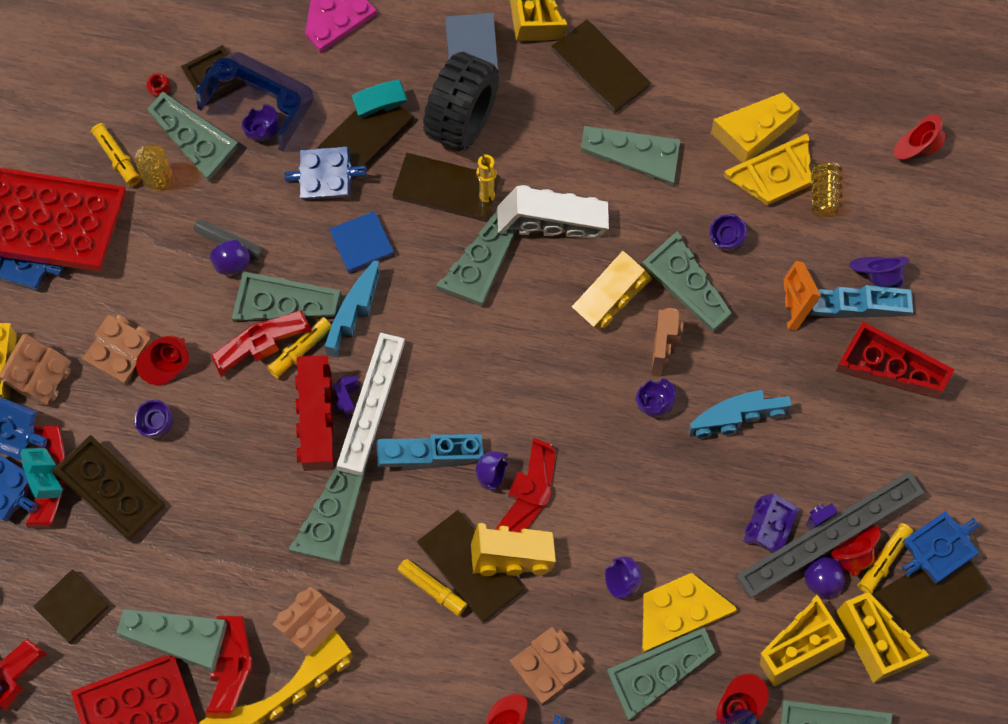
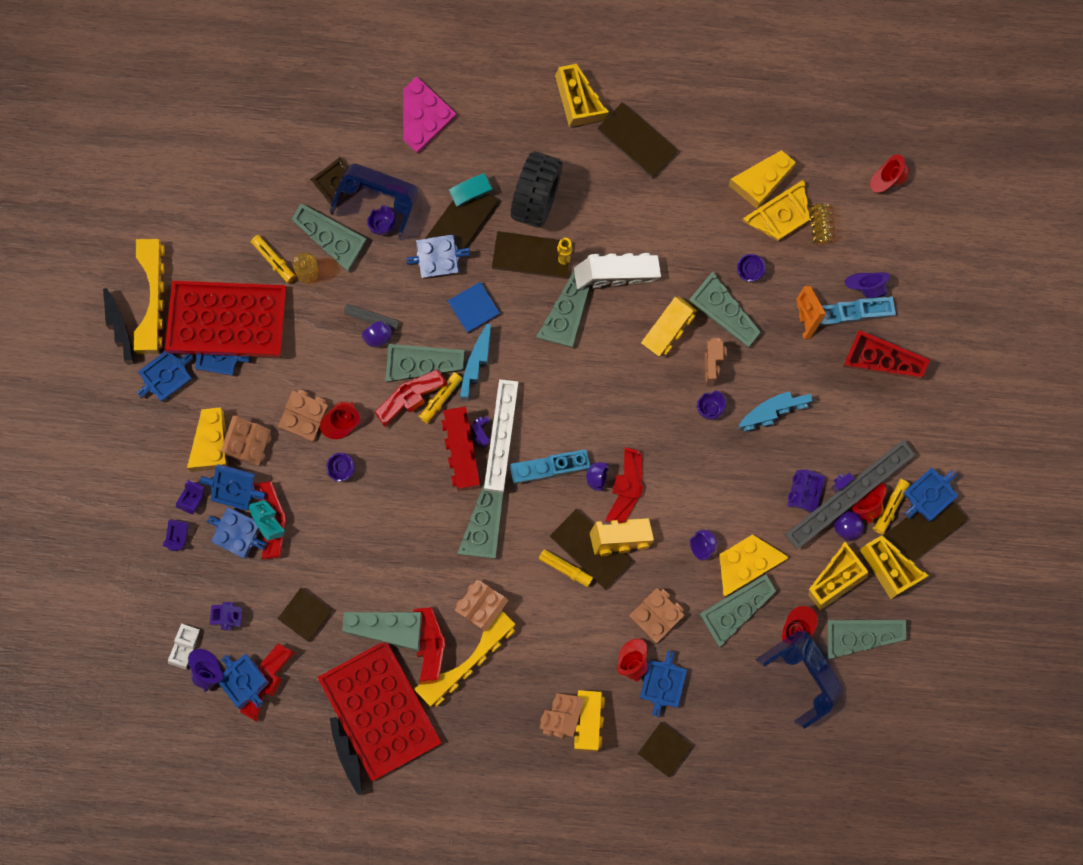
camera: 10 degrees left, 10 degrees up
(109, 488) = (317, 524): dark brown tile -> none
(155, 80) = (295, 191): red plate -> none
(472, 35) = (535, 133): sand blue slope -> none
(641, 152) = (677, 209): sand green wing -> none

